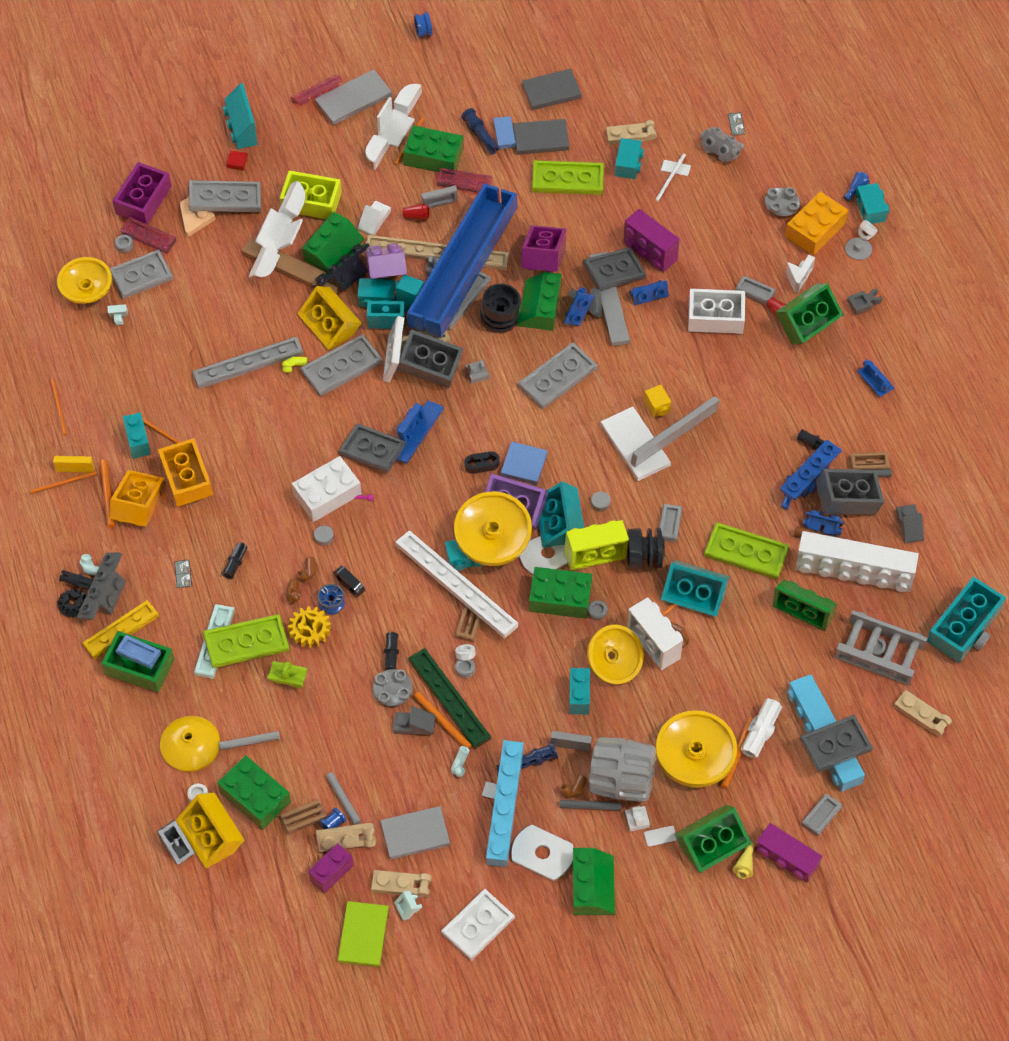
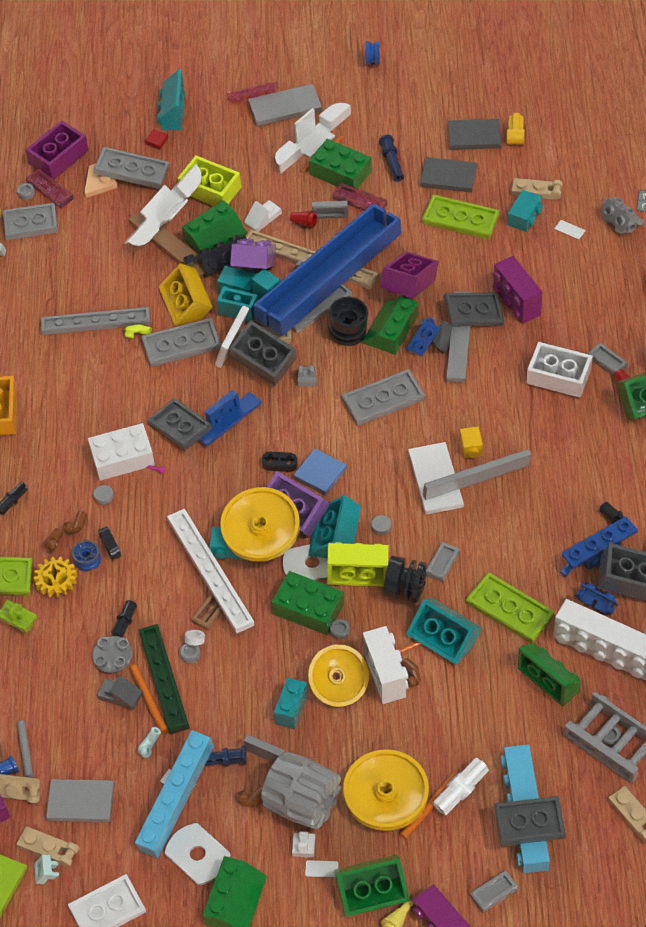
camera: 20 degrees right, 5 degrees down
(504, 132) = (414, 164): medium blue tile -> none
(590, 805) = (262, 819): dark grey bar -> none
(591, 80) = (515, 133): none -> yellow piece
(650, 292) = (501, 339): blue hinge -> none
(670, 177) = (560, 237): white axle -> none

